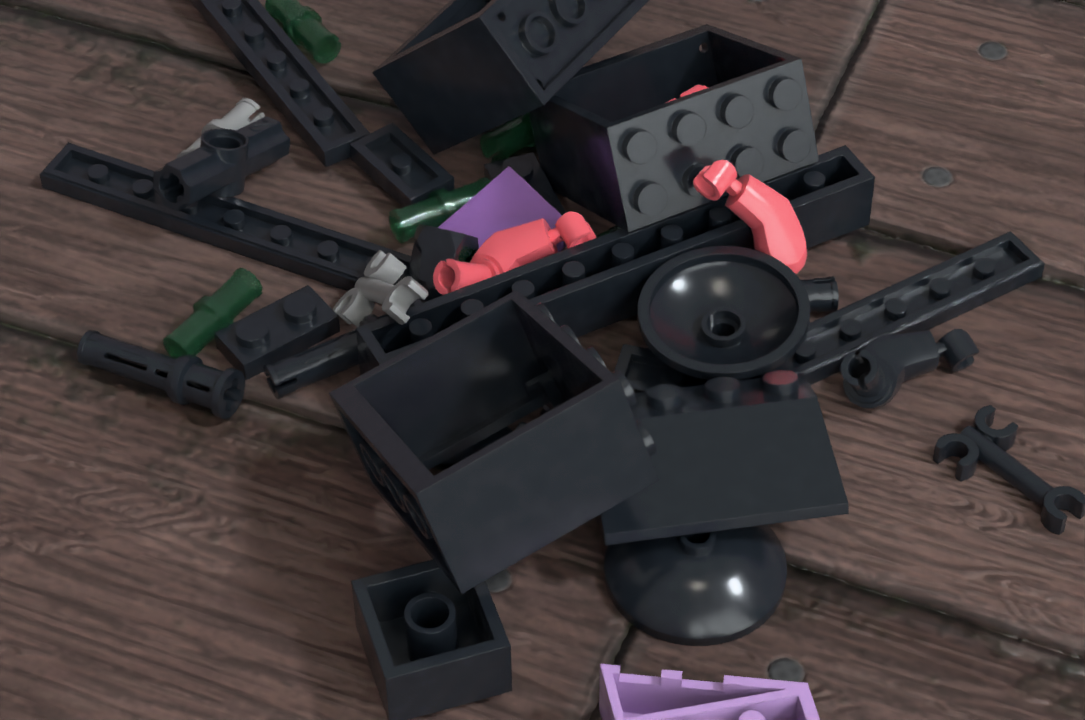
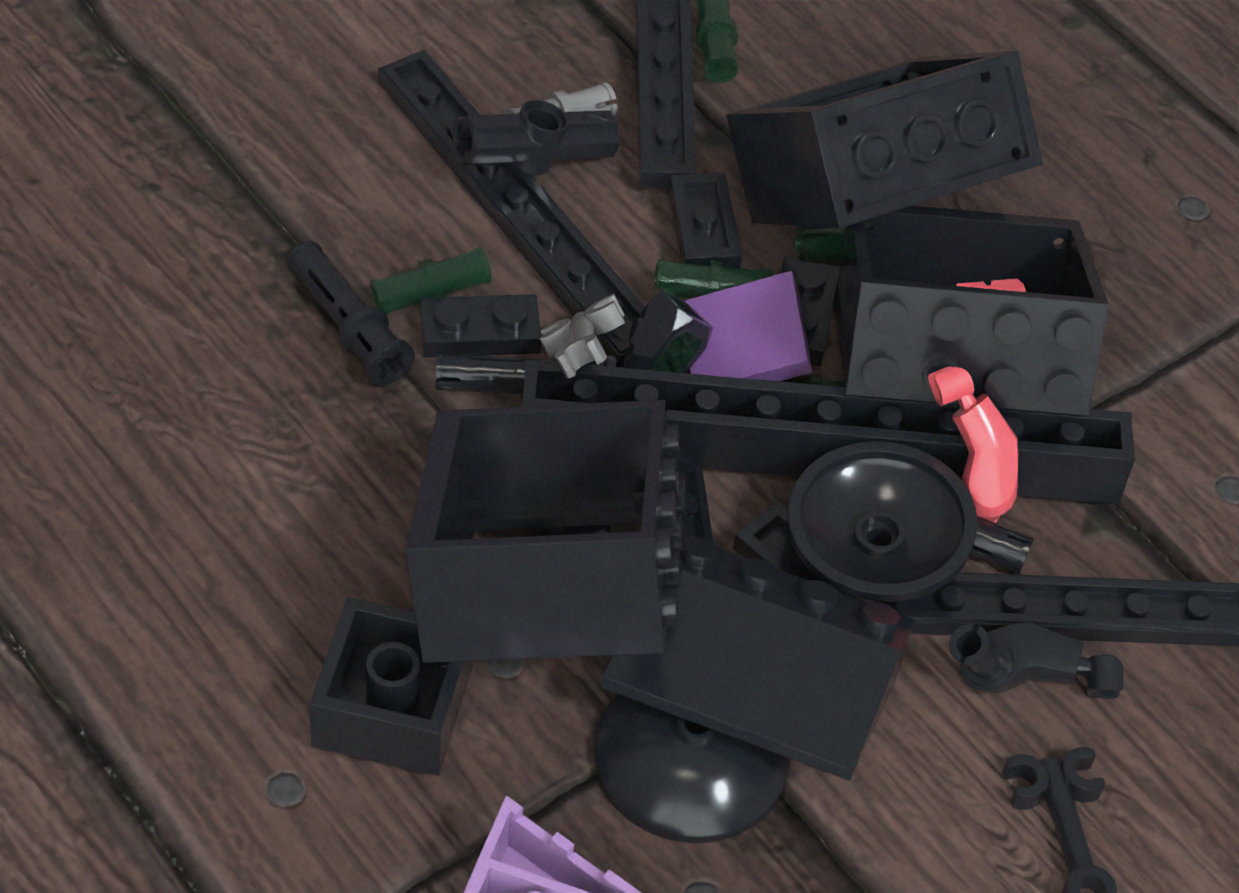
camera: 25 degrees right, 5 degrees up
(512, 249) = (727, 356): coral arm -> none

